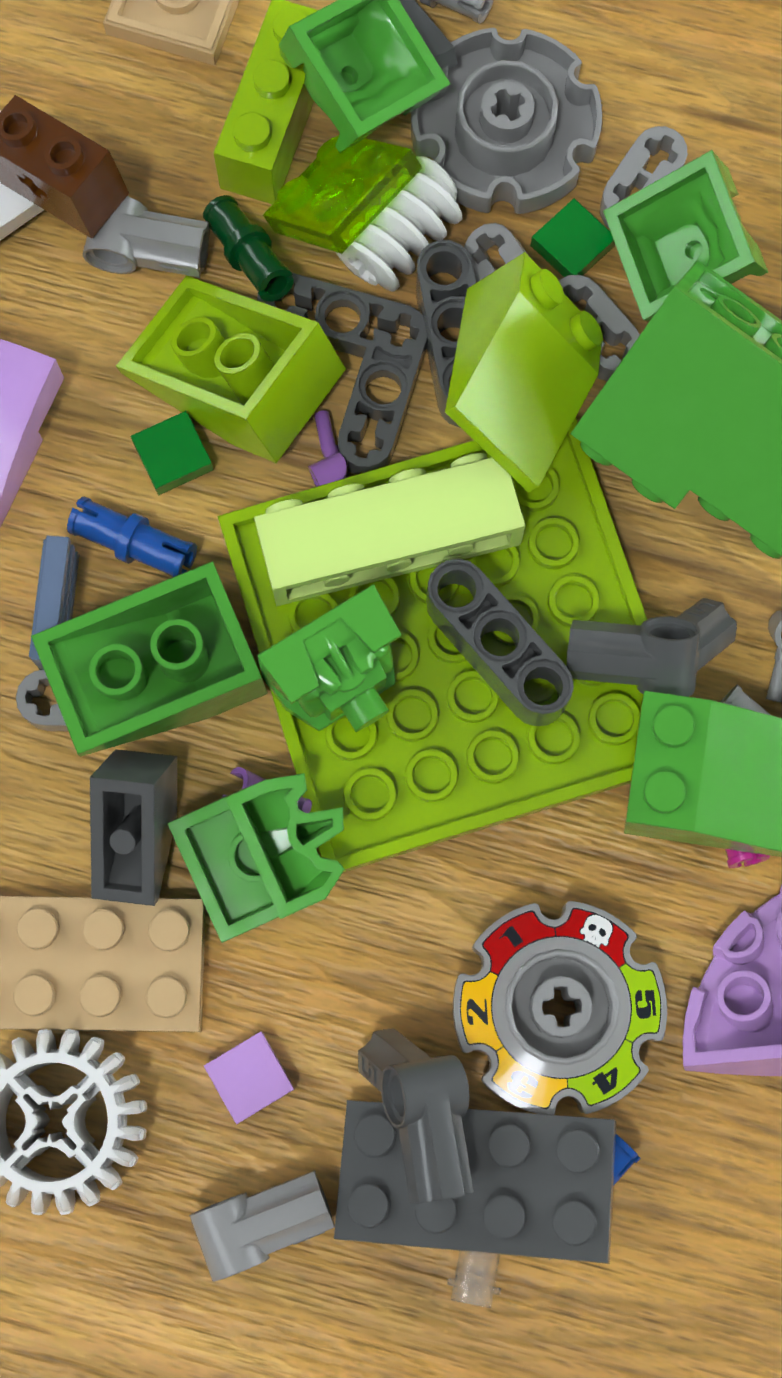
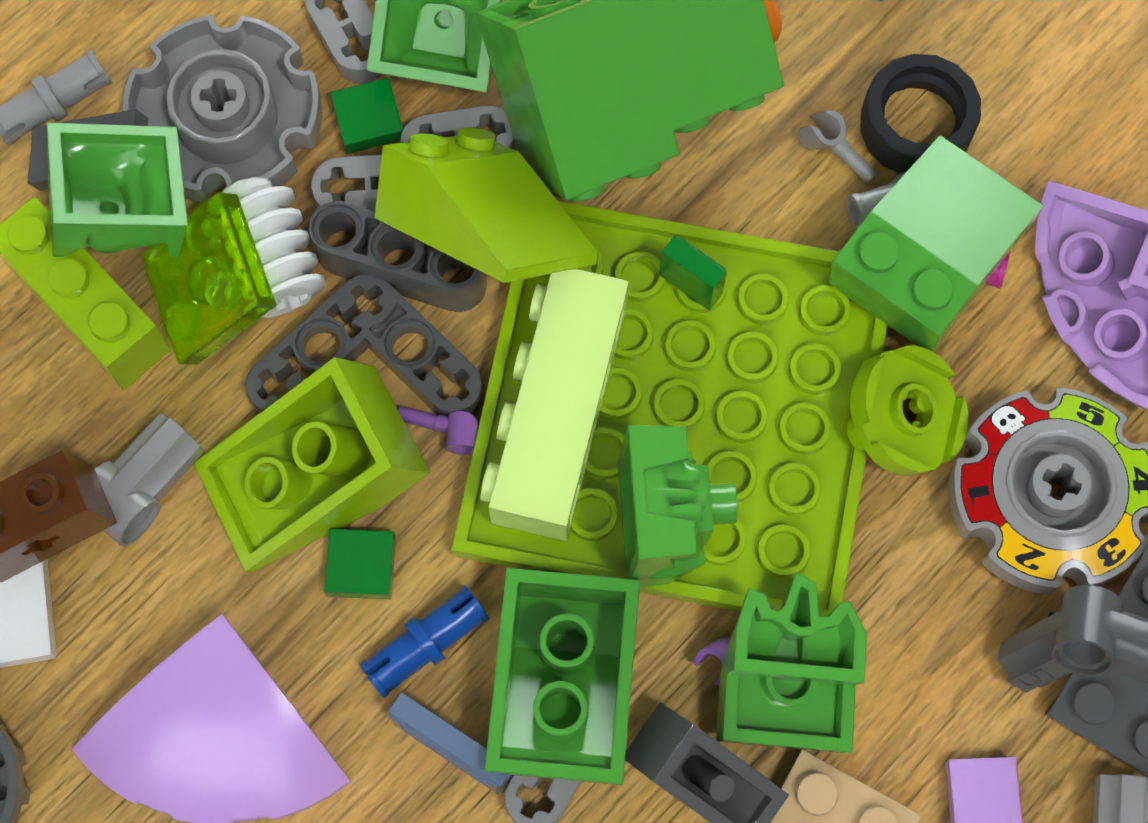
camera: 60 degrees left, 5 degrees down
(248, 248) = (208, 390): dark green pin -> none
(489, 613) = (735, 342): dark grey beam -> none
(527, 816) = (878, 415): none -> lime plate
(574, 580) = (692, 272): none -> green tile
(654, 656) = (799, 242): dark grey piece -> none

